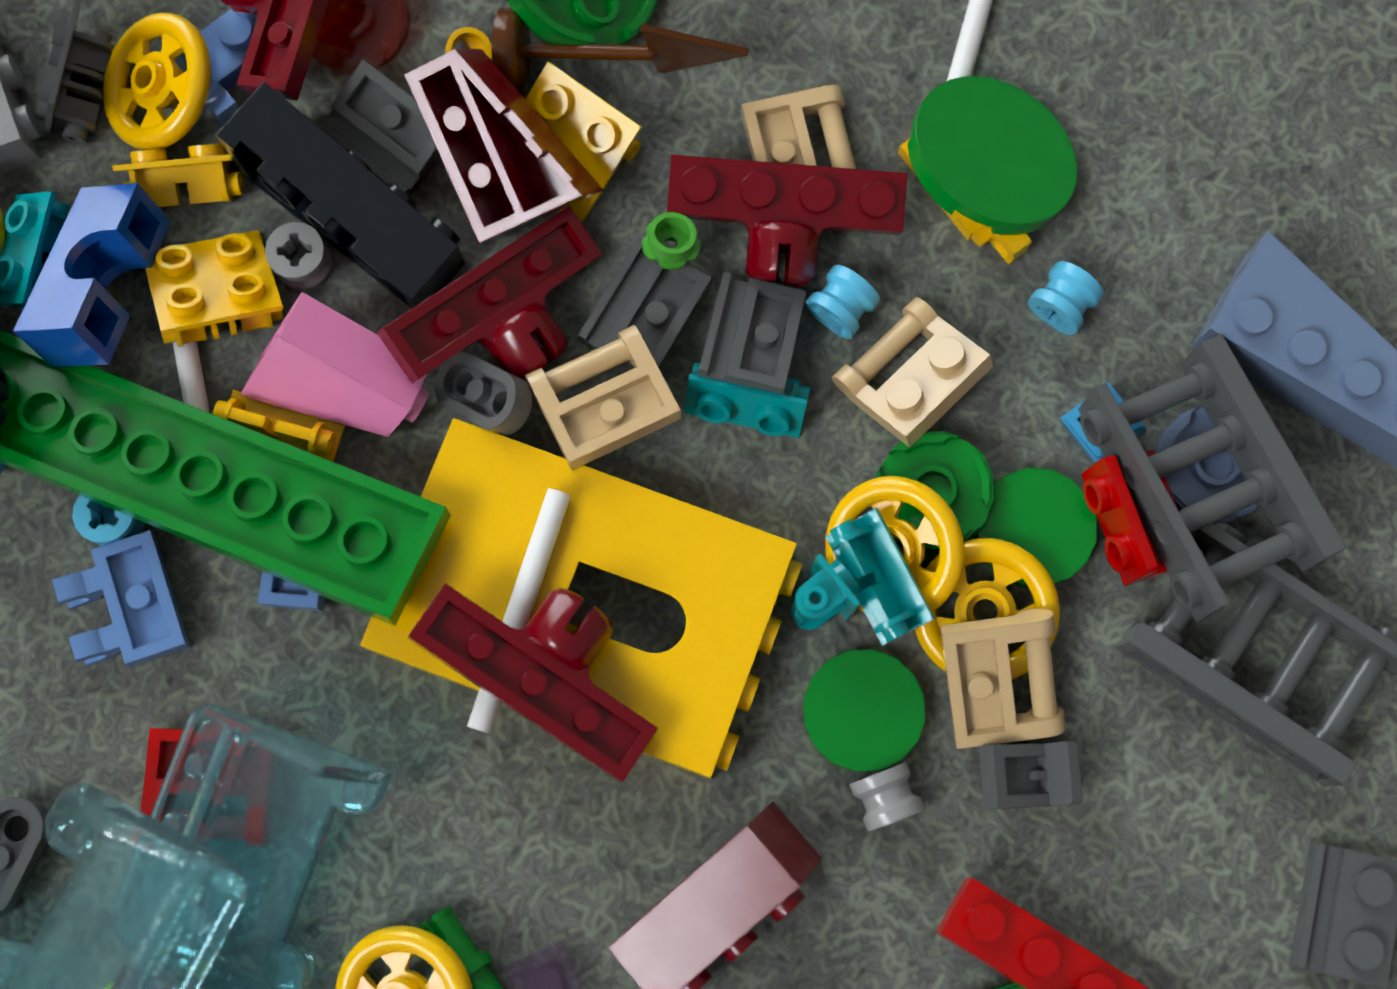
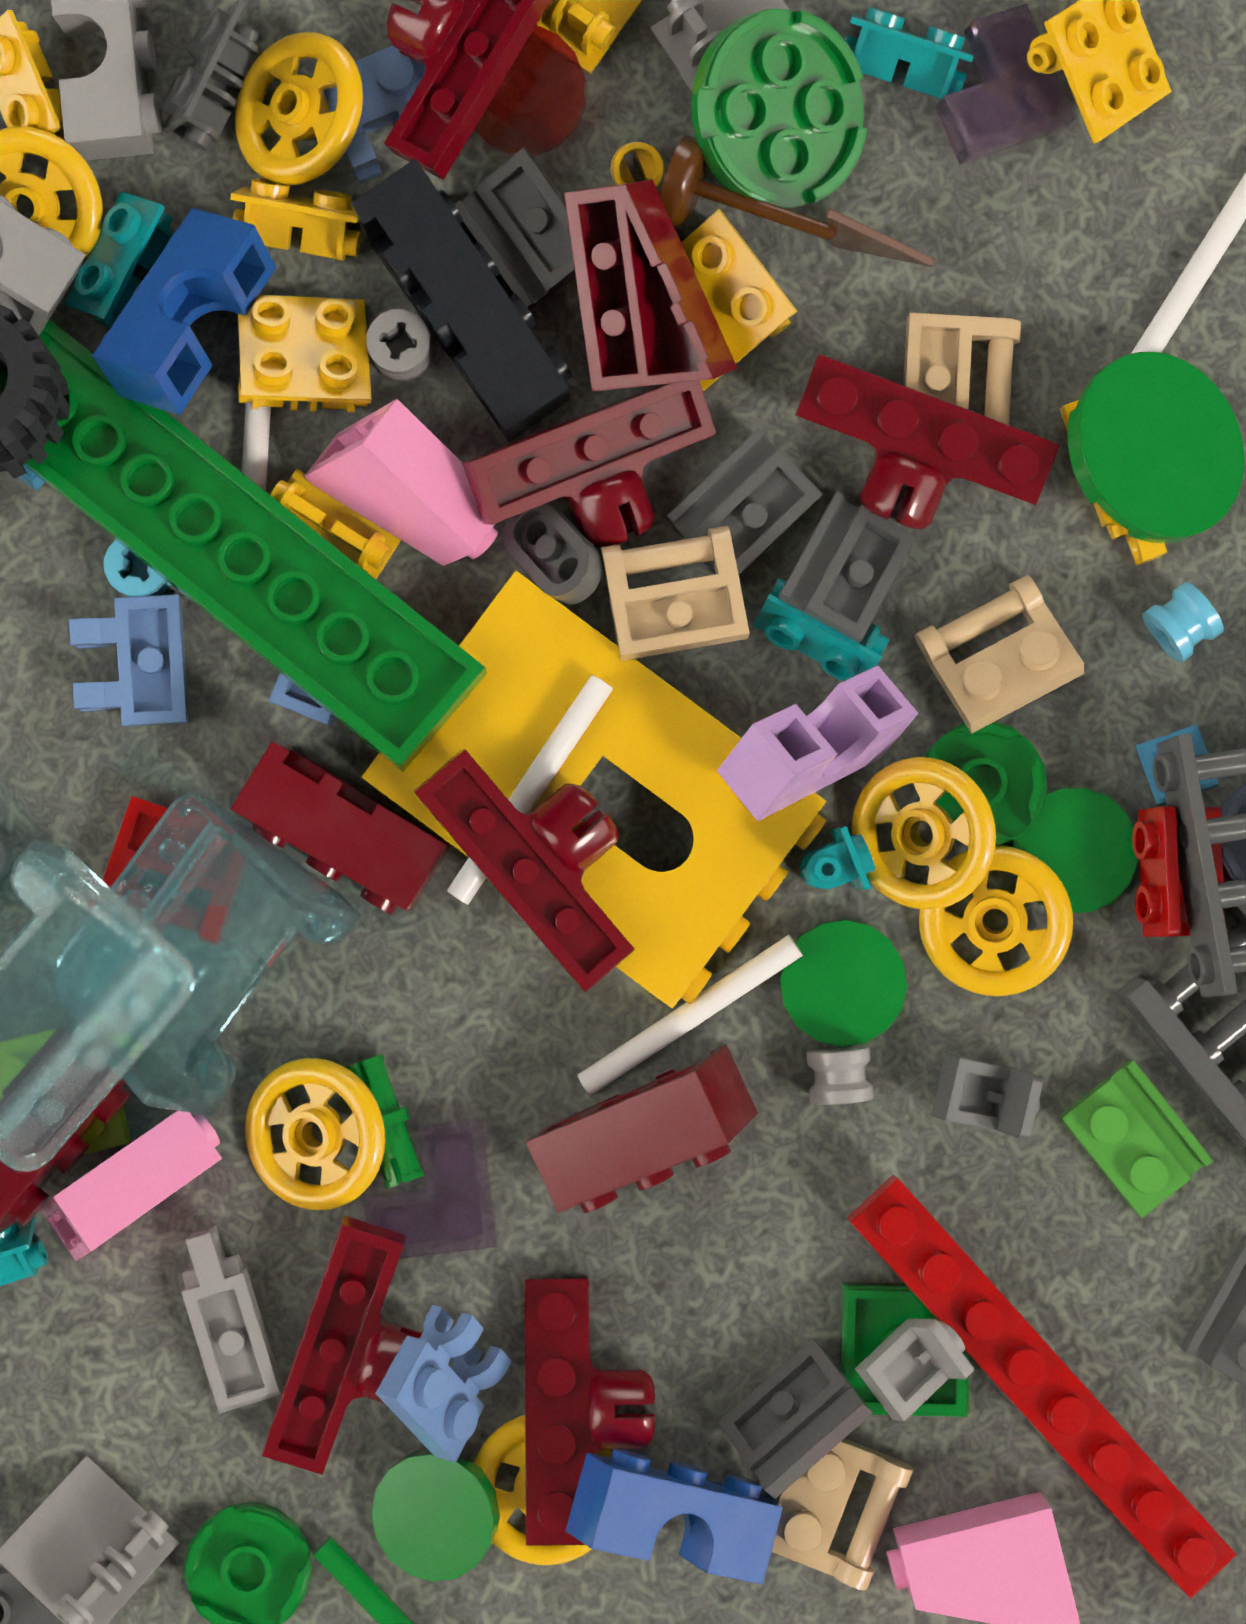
camera: 15 degrees right, 10 degrees up
(351, 698) = (340, 828): none -> dark red wedge
(675, 228) = (791, 430): bright green plate -> none
(729, 783) = (690, 1015): none -> white bar
(752, 506) = (800, 754): none -> lavender arch
(842, 301) = (950, 558): medium azure wheel -> none
(885, 581) = (902, 860): teal hinge -> none
(982, 680) = (969, 991): tan plate -> none
(1180, 776) = (1135, 1138): none -> bright green plate

